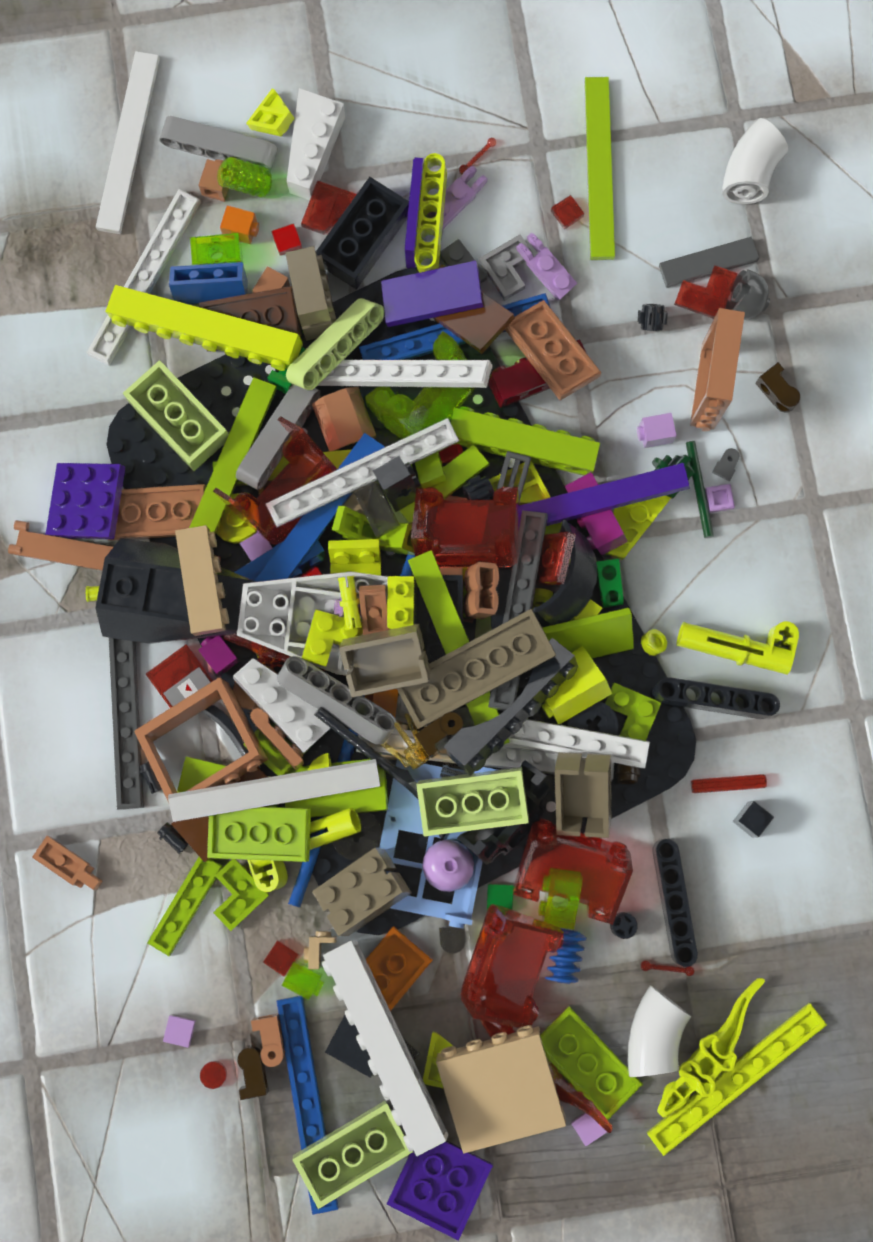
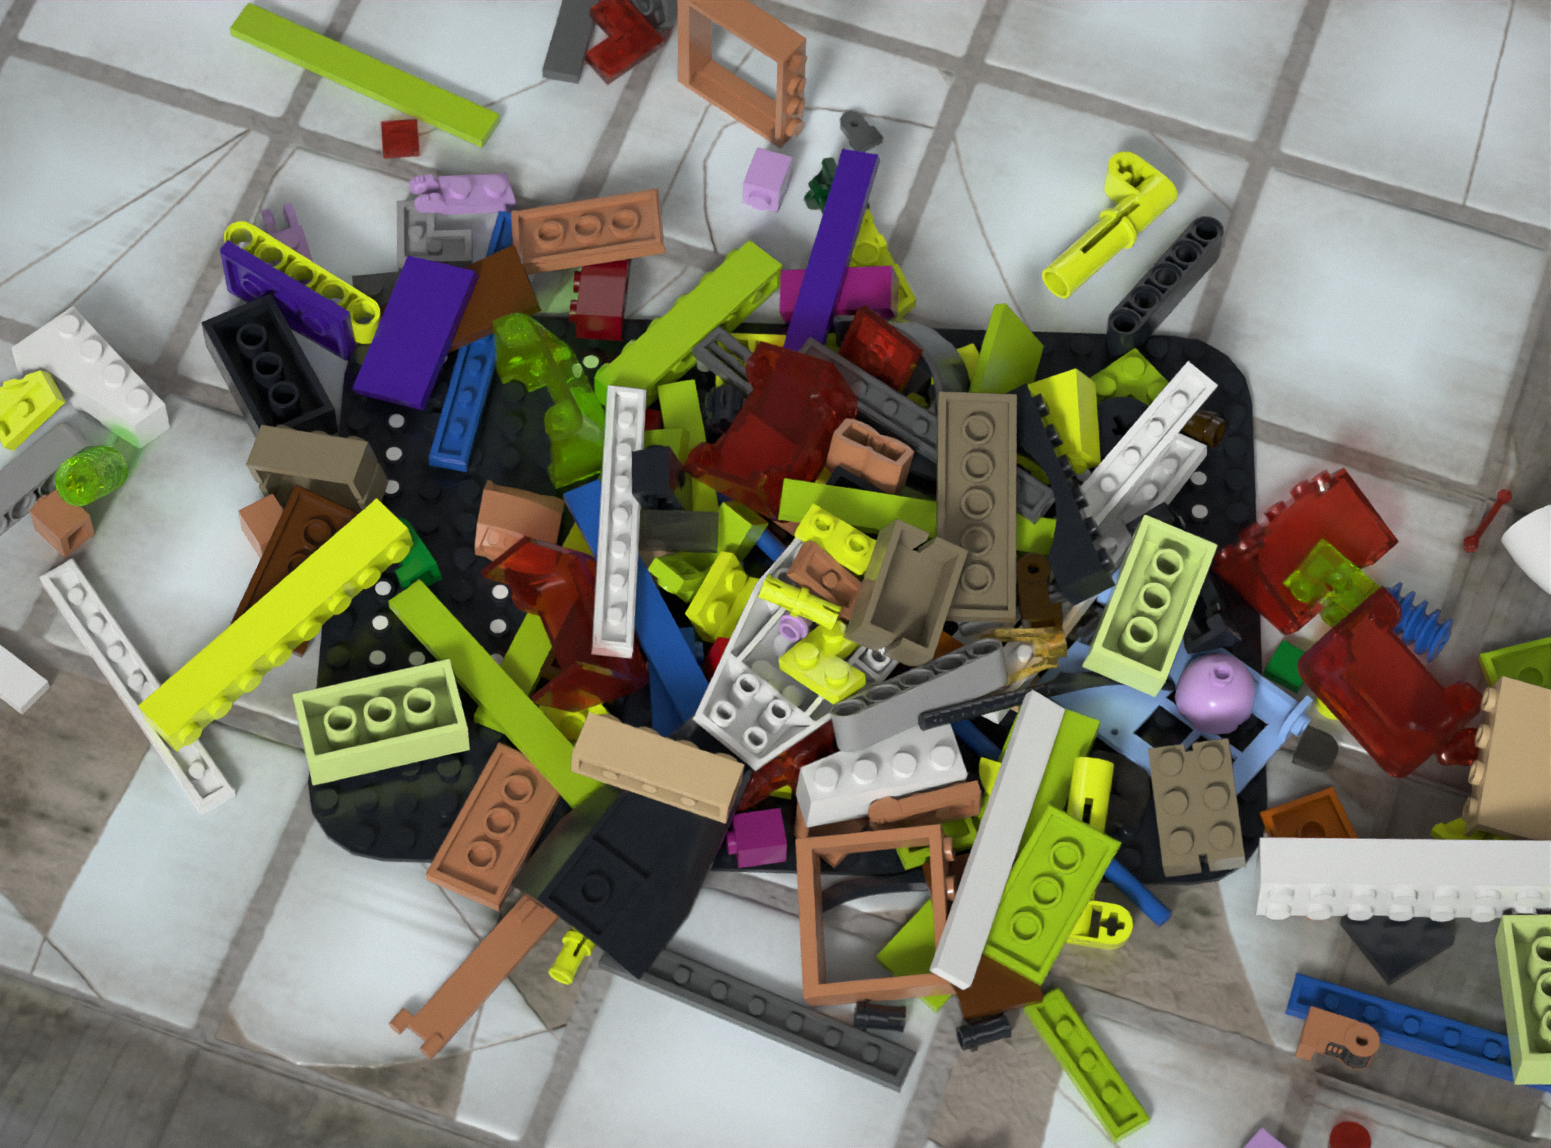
camera: 65 degrees left, 20 degrees down
(85, 500) = (423, 908): dark purple plate -> none
(179, 676) = (757, 916): clear red tile -> none
(206, 246) = (170, 552): clear neon green brick -> none
(207, 282) = (209, 595): blue brick -> none
(241, 222) = (148, 524): orange brick -> none
(244, 893) = (1117, 974): lime plate -> none
(254, 1073) = (1373, 1083): dark brown leg -> none
(255, 546) = (633, 713): lavender tile -> none
(268, 447) = (492, 610): light grey beam -> none
(281, 958) = (1229, 976): clear red tile -> none
(286, 239) = (207, 481): red tile -> none
(303, 980) = (1276, 956): clear neon green brick -> none
(312, 954) = (1241, 921): tan bracket -> none
(325, 207) = (198, 407): clear red wing -> none
(335, 344) = (412, 475): yellowish green beam -> none
(377, 399) = (528, 463): clear neon green brick -> none
(410, 373) = (510, 409): white tile -> none
(491, 142) = (241, 178): clear red hinge -> none
(581, 792) = (1212, 474): dark tan piece -> none
(609, 583) = (950, 323): green leg -> none
(627, 924) = (1411, 530): black wheel -> none
(652, 317) = (612, 110): black gear -> none
(654, 642) = (1048, 322): neon yellow tile -> none
(683, 913) = (1418, 478): black beam -> none
(699, 490) = (887, 180): dark green bar -> none
(719, 498) = (899, 161): lavender tile -> none
(728, 783) = (1282, 333): clear red axle -> none
(753, 819) = (1345, 324): black brick -> none
(778, 390) = (812, 21): dark brown leg -> none

